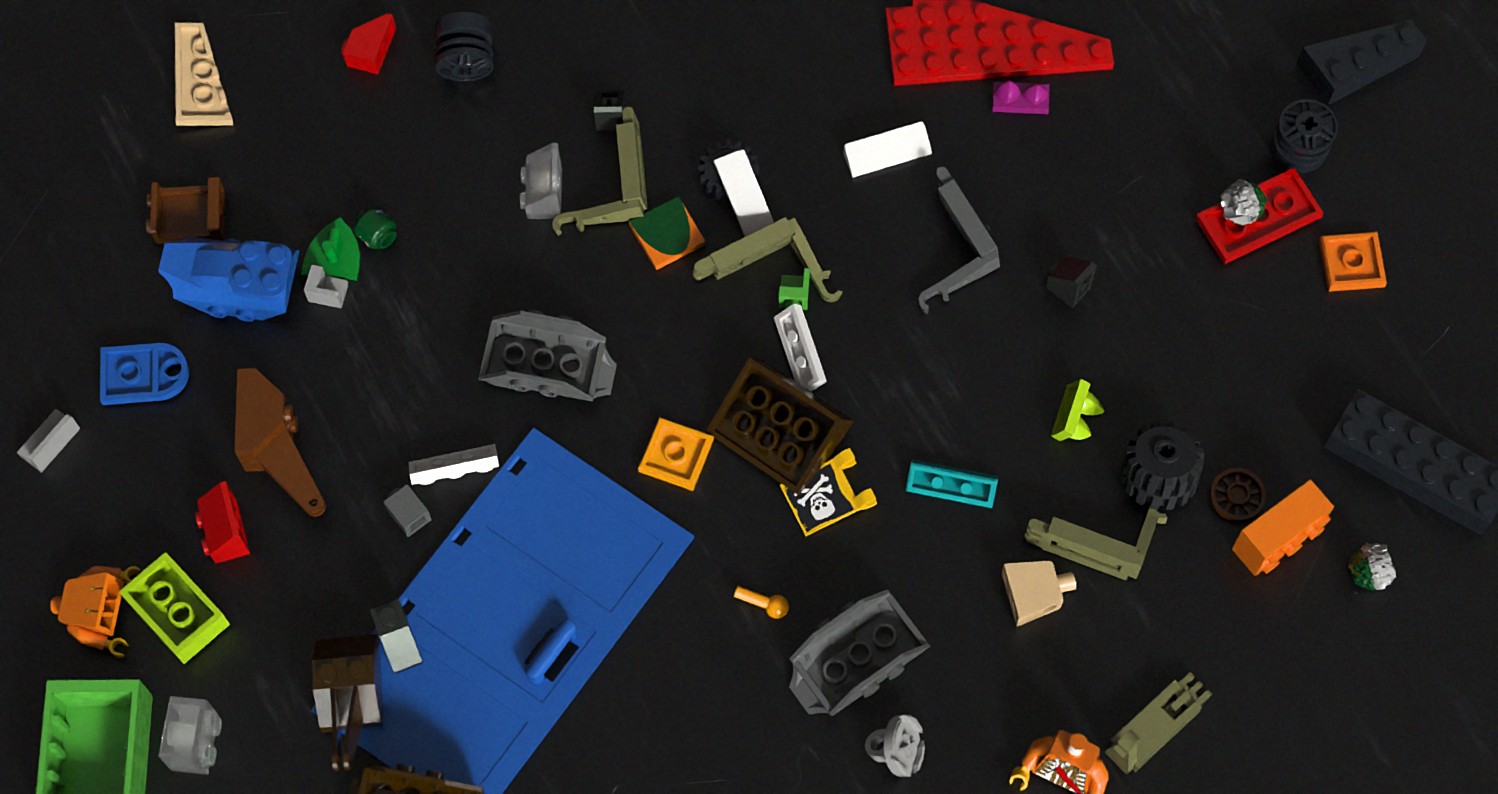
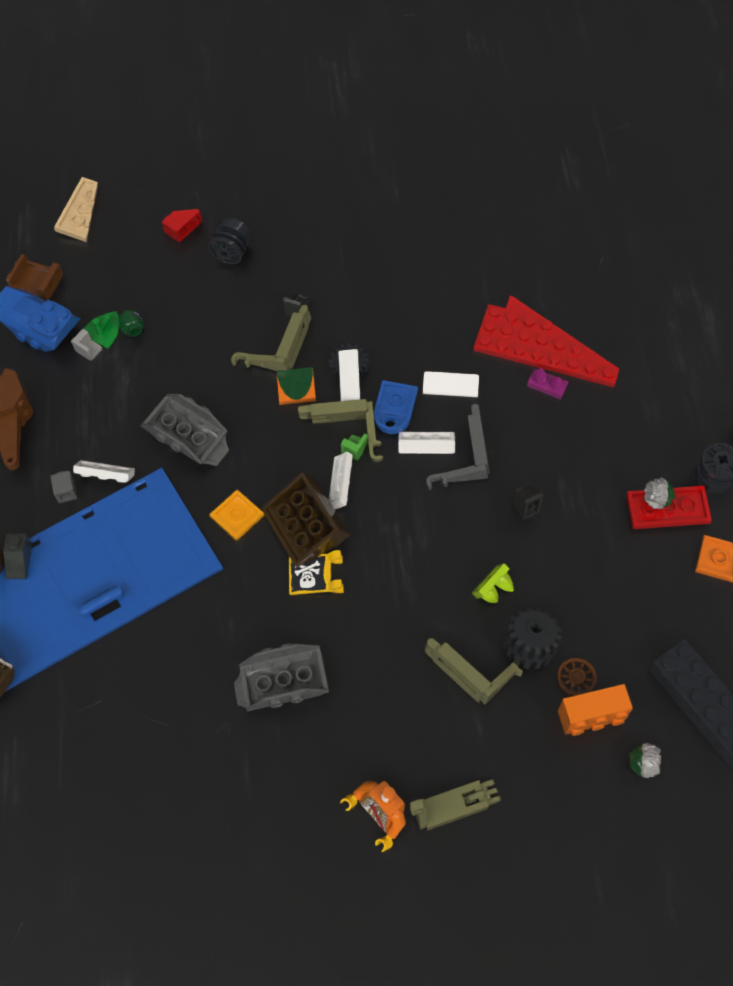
camera: 25 degrees right, 5 degrees down
(543, 183) = (237, 331): clear slope -> none
(775, 606) = (250, 630): light orange bar -> none
(824, 208) = (394, 404): none -> blue plate
(892, 247) = (427, 442): none -> white slope
(901, 747) = (281, 748): light grey tile -> none
(952, 483) = (395, 597): teal slope -> none
(1035, 589) = (415, 684): tan torso -> none

